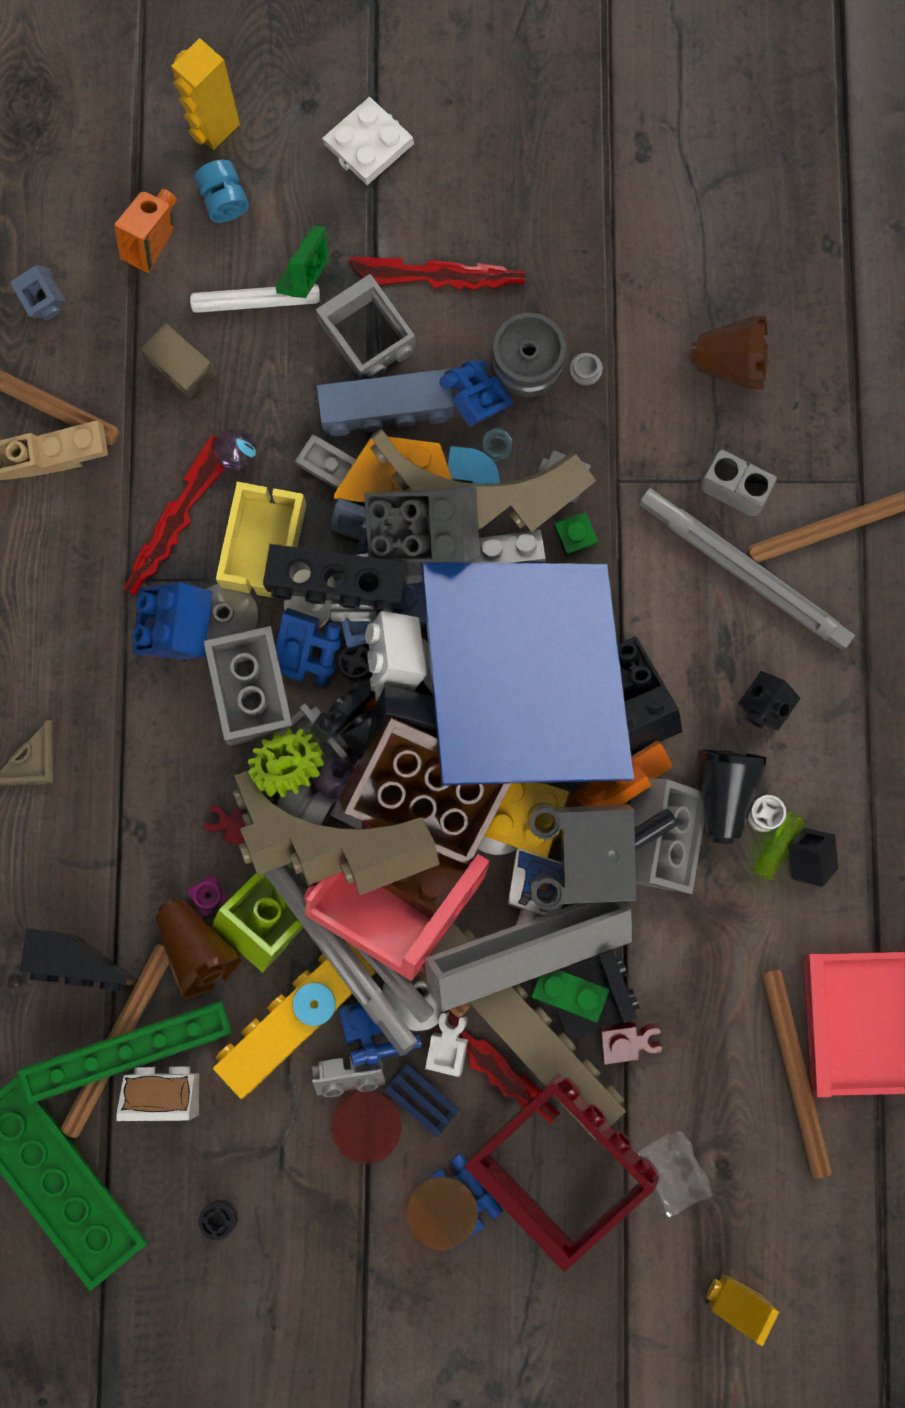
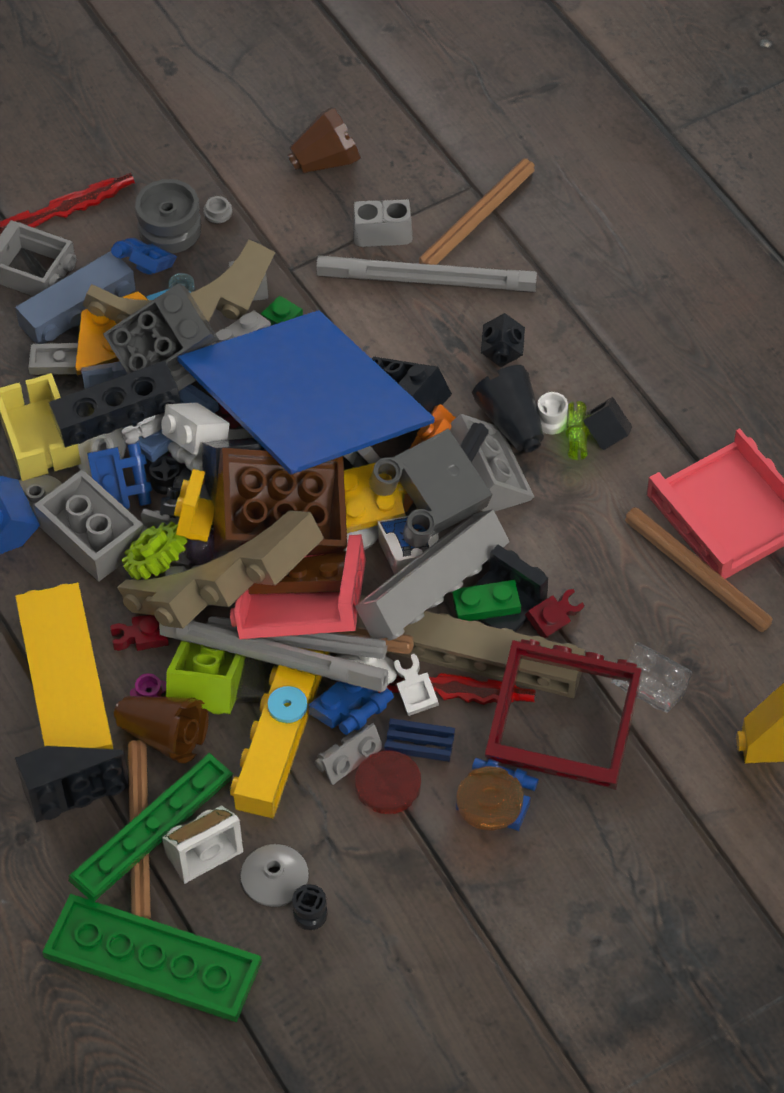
camera: 30 degrees left, 25 degrees down
(138, 837) = (63, 668): none -> yellow brick
(229, 1153) = (278, 887): none -> light grey dish
(340, 756) = (194, 512): none -> yellow bracket

